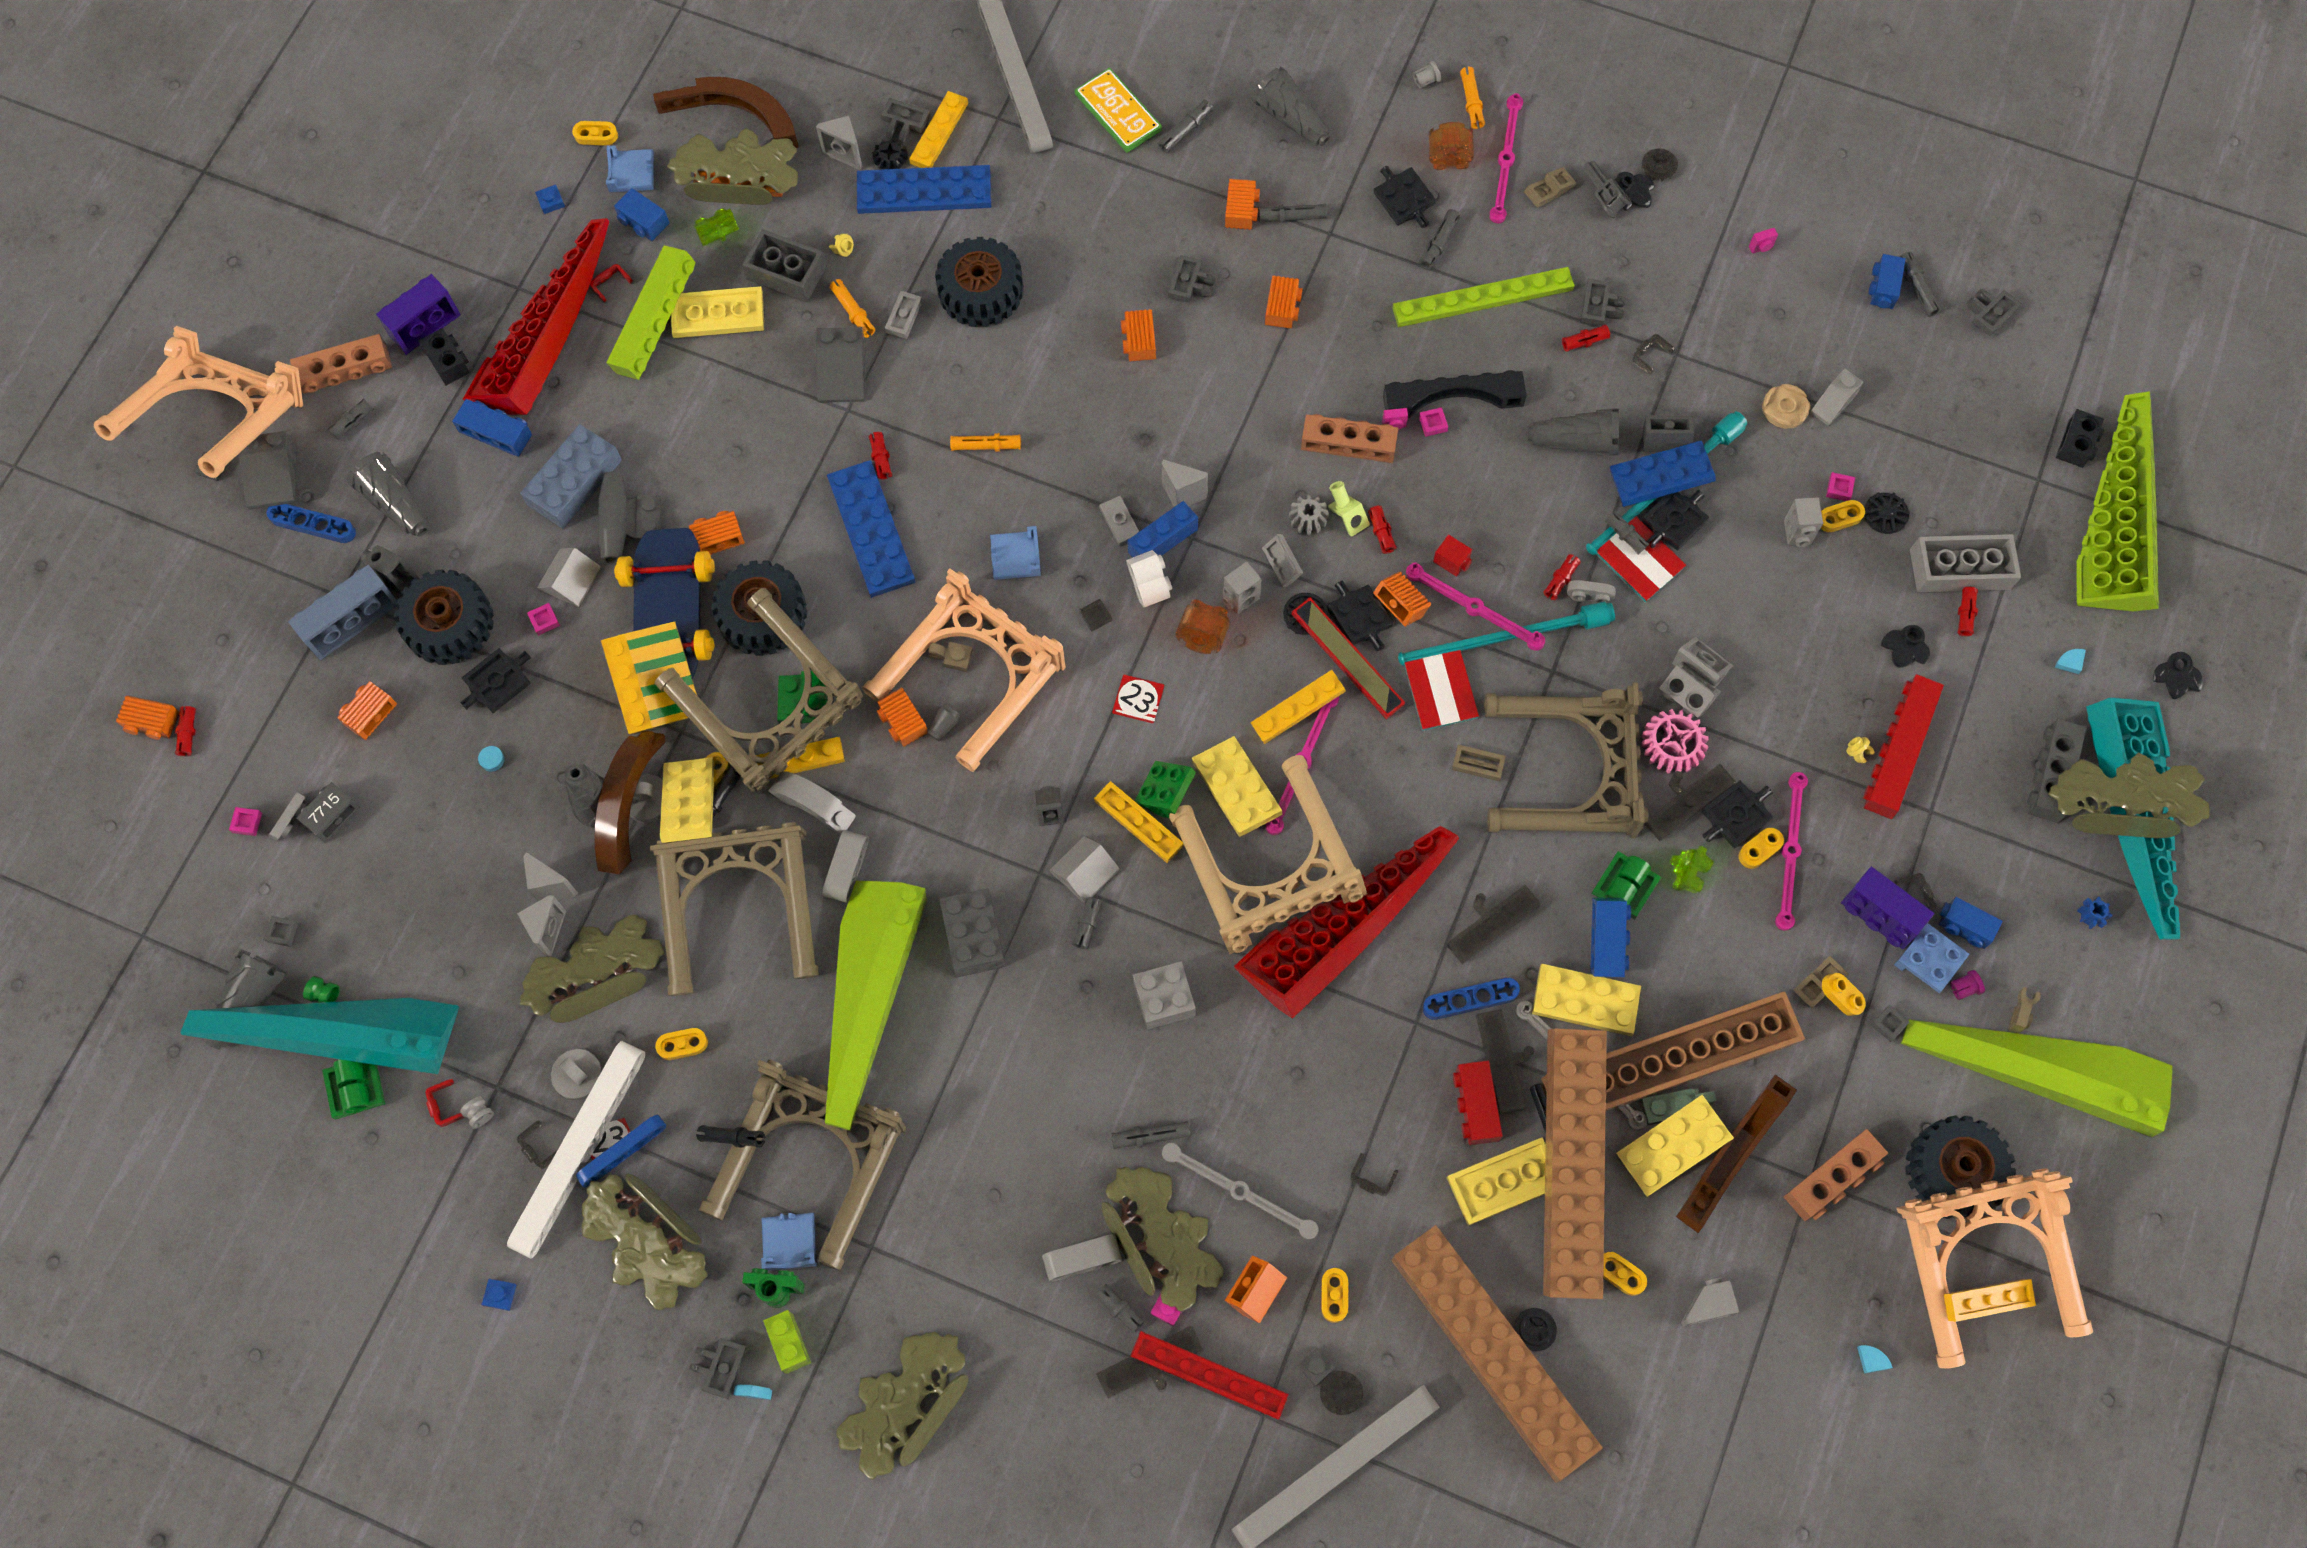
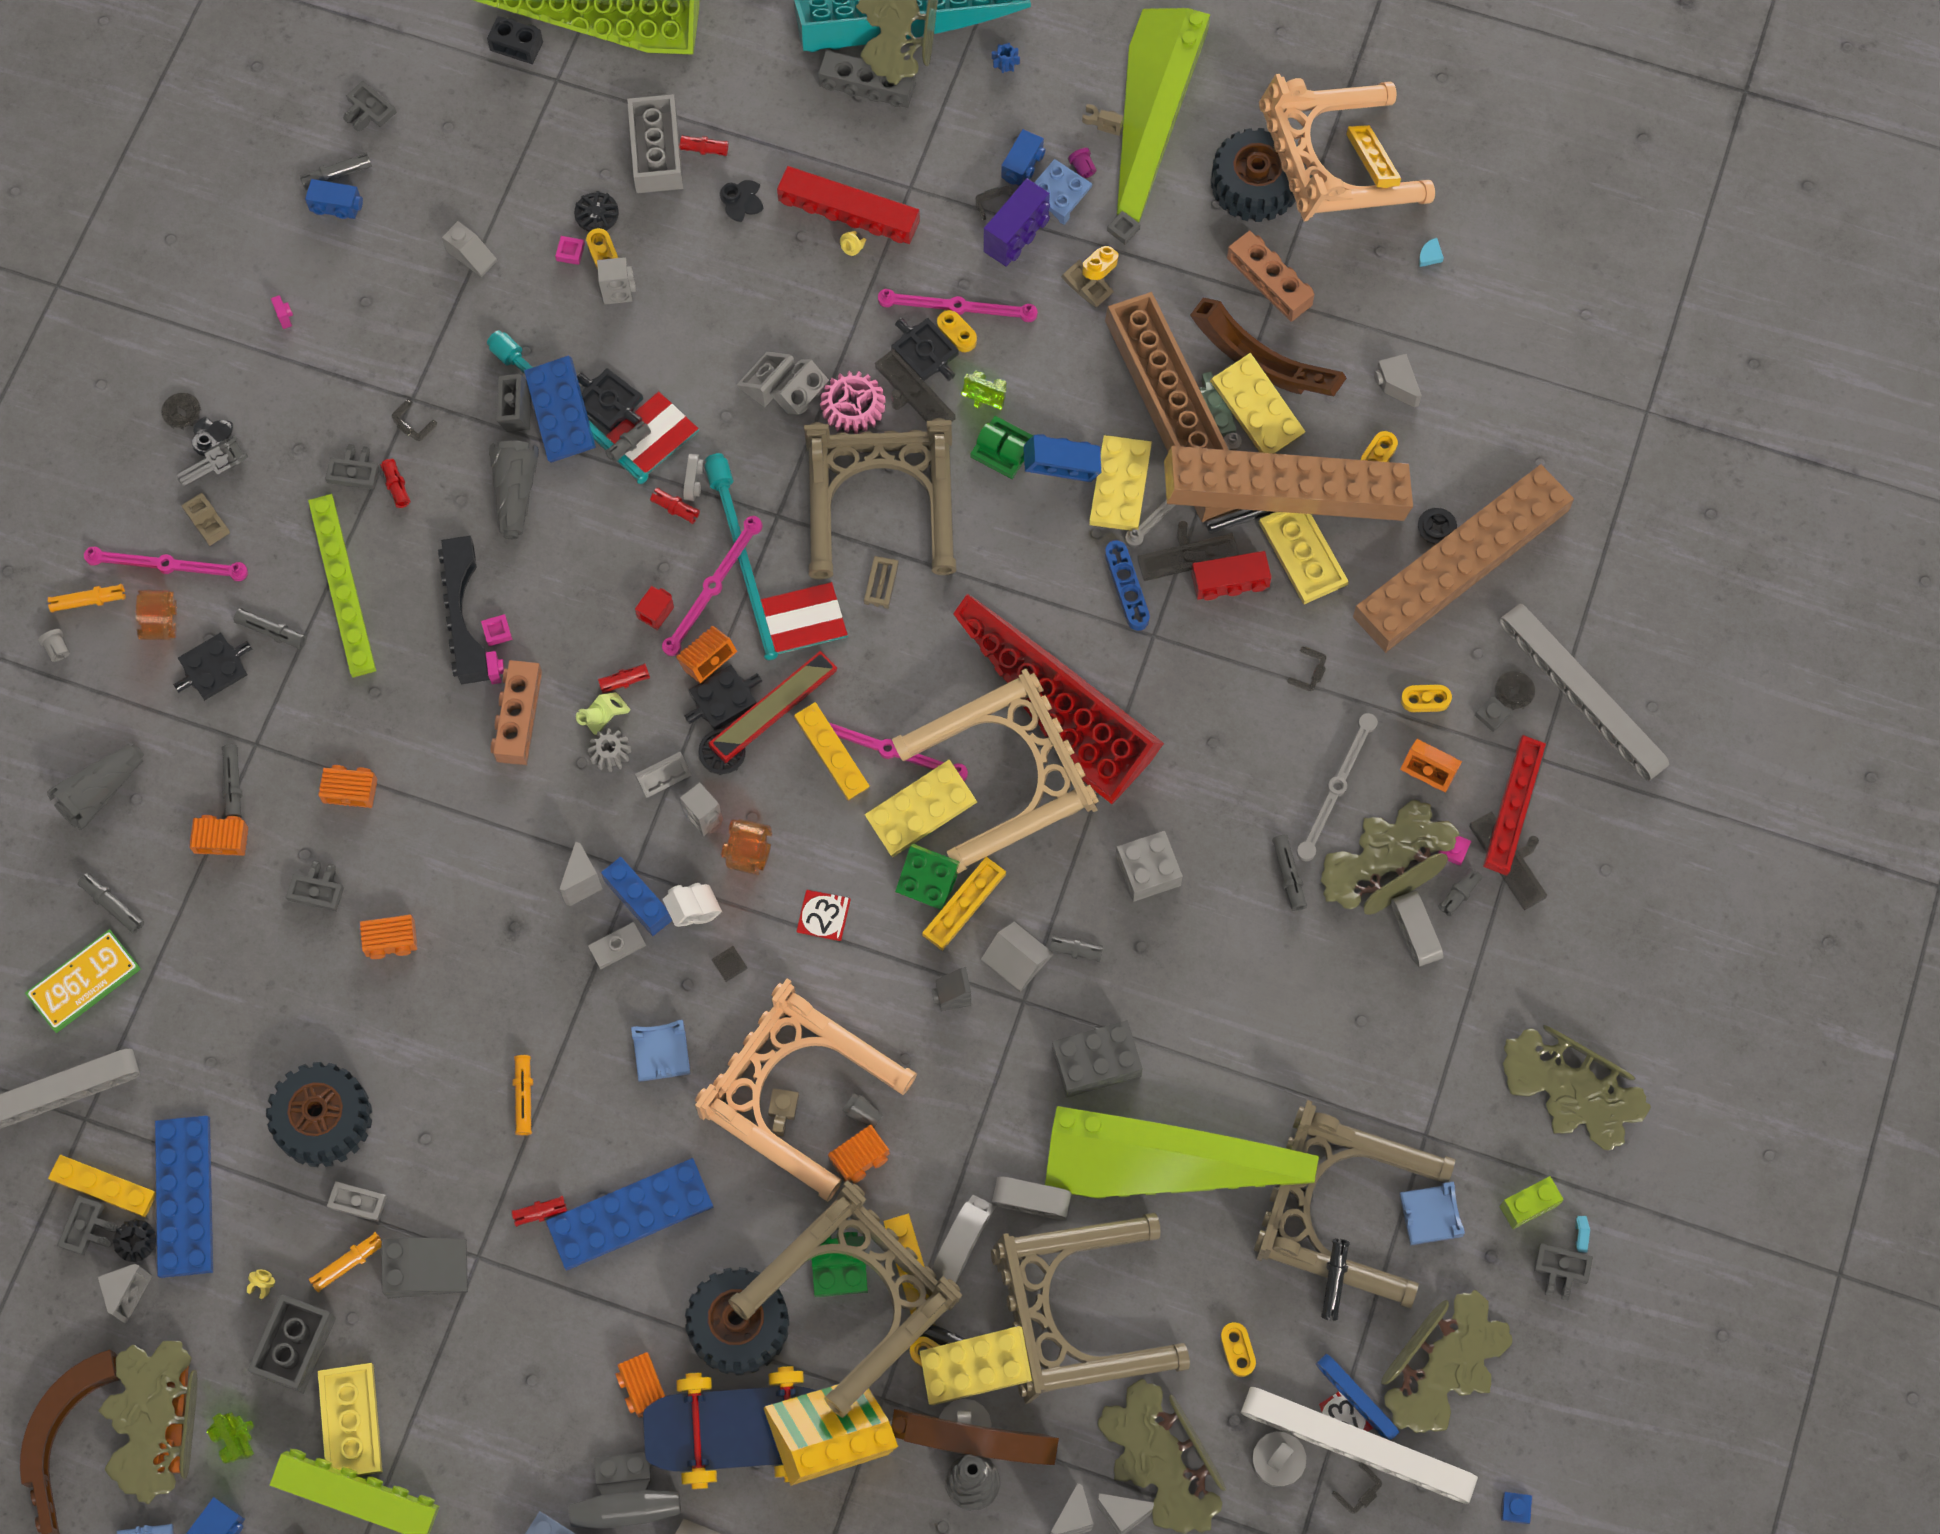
camera: 95 degrees left, 0 degrees up
(763, 1282) = (1479, 1229): green plate -> none
(1492, 922) = (1051, 565): clear smoke plate -> none
(1786, 406) = (476, 298): tan tile -> none
(2071, 661) = (752, 62): medium azure tile -> none

